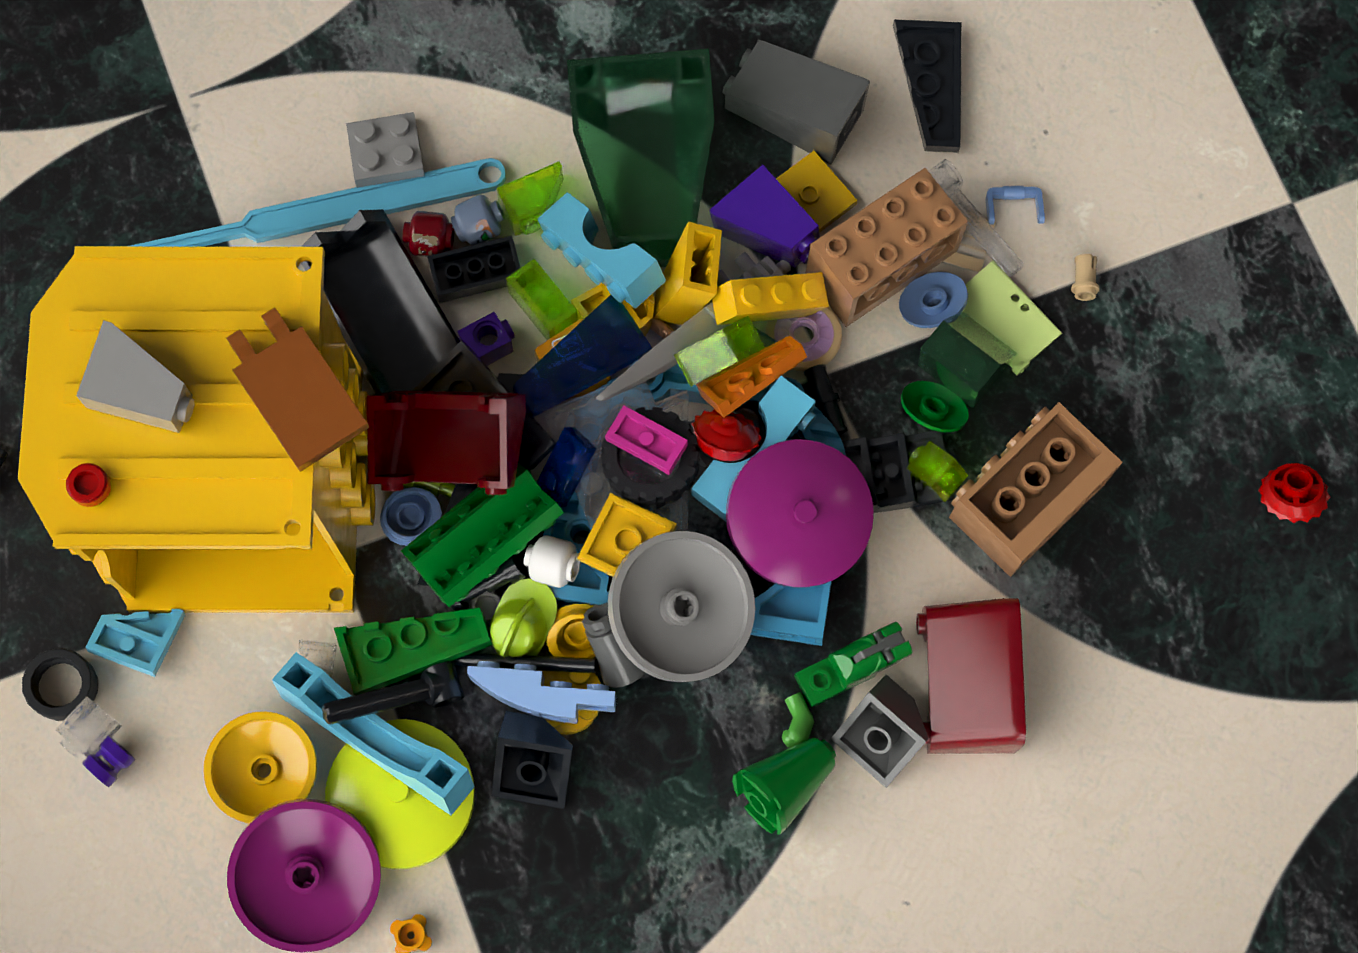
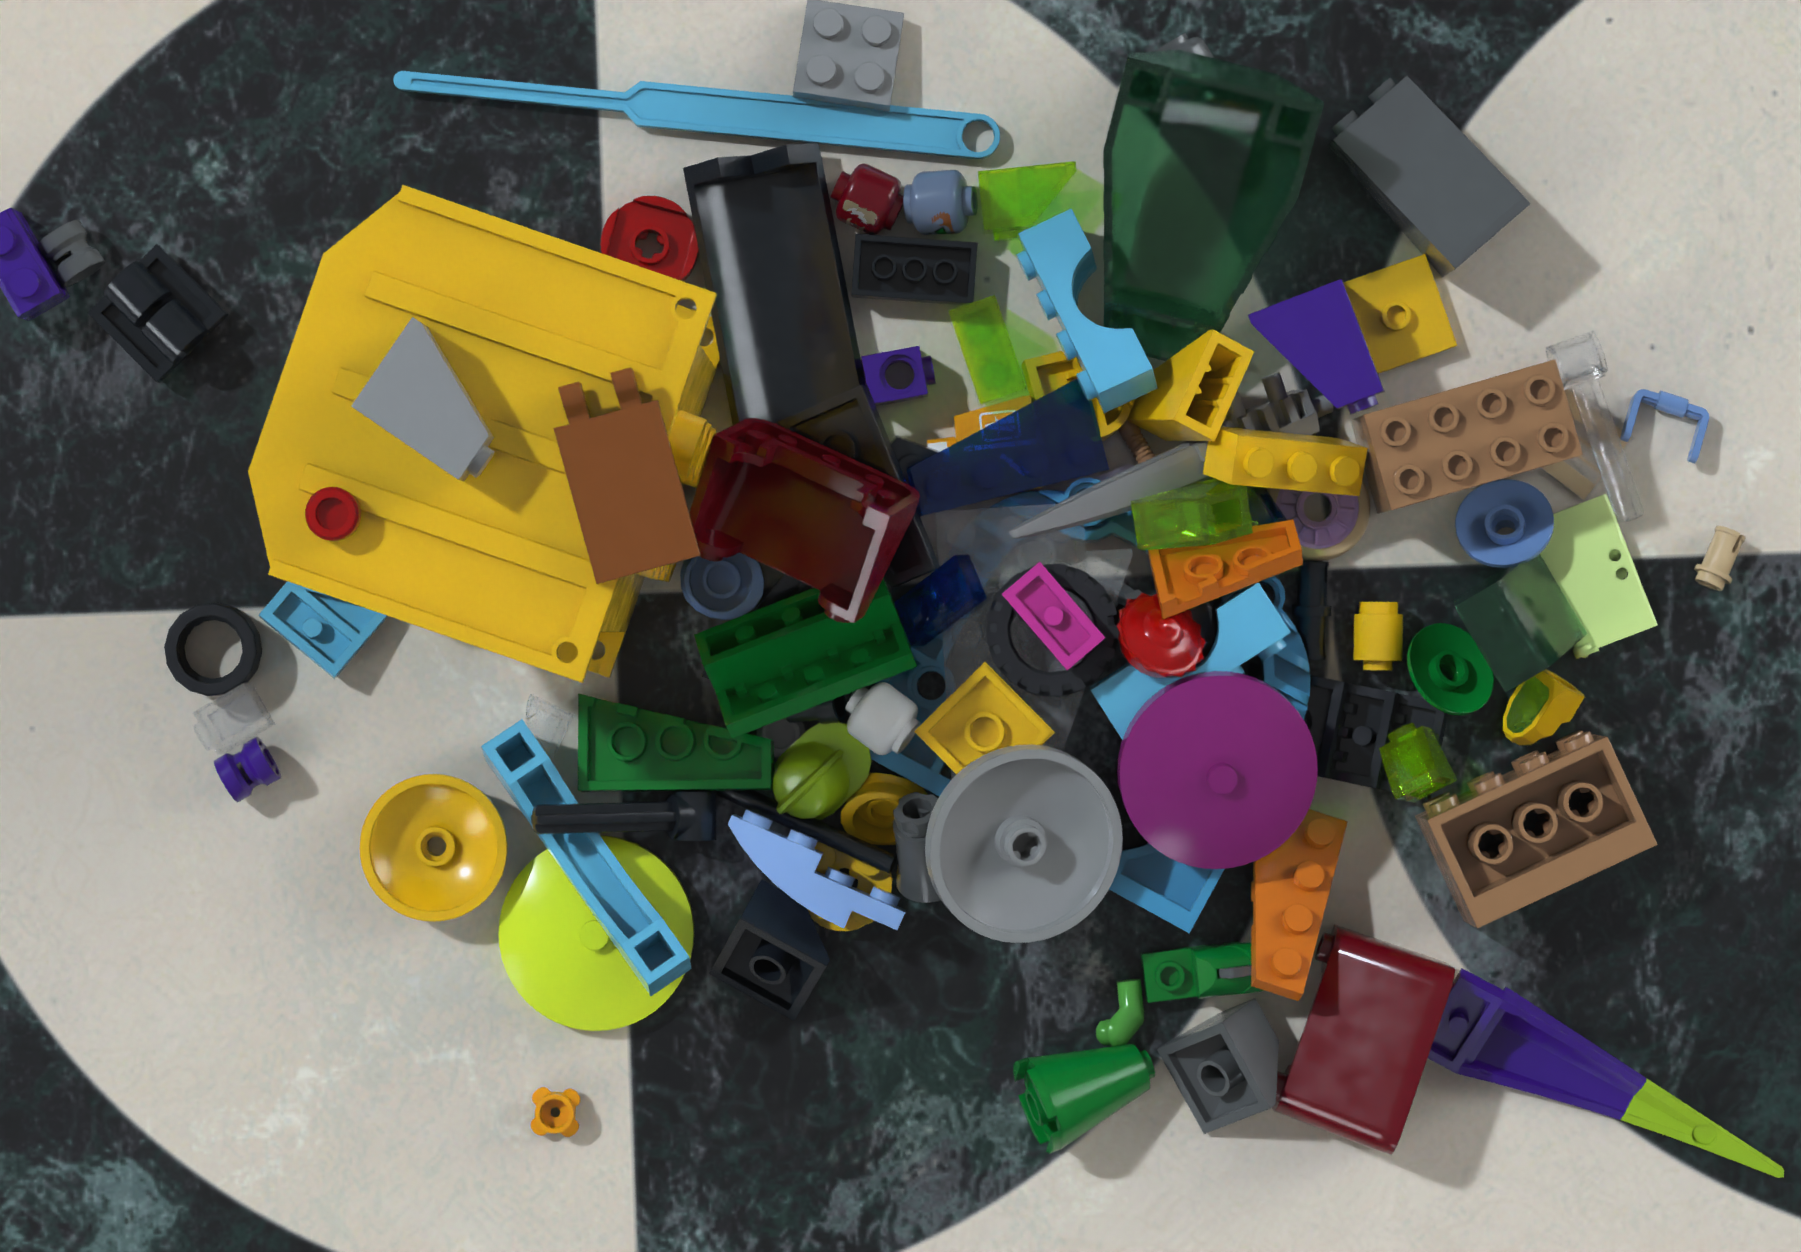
camera: 25 degrees right, 15 degrees up
(304, 875) = (448, 999): magenta dish -> none
(876, 401) = (1378, 635): none -> yellow brick
(885, 595) = (1290, 903): none -> orange wing
(933, 75) = (1628, 197): black wing -> none
(1004, 411) = (1540, 708): none -> yellow rock
(1079, 644) = (1519, 1046): none -> dark purple plate

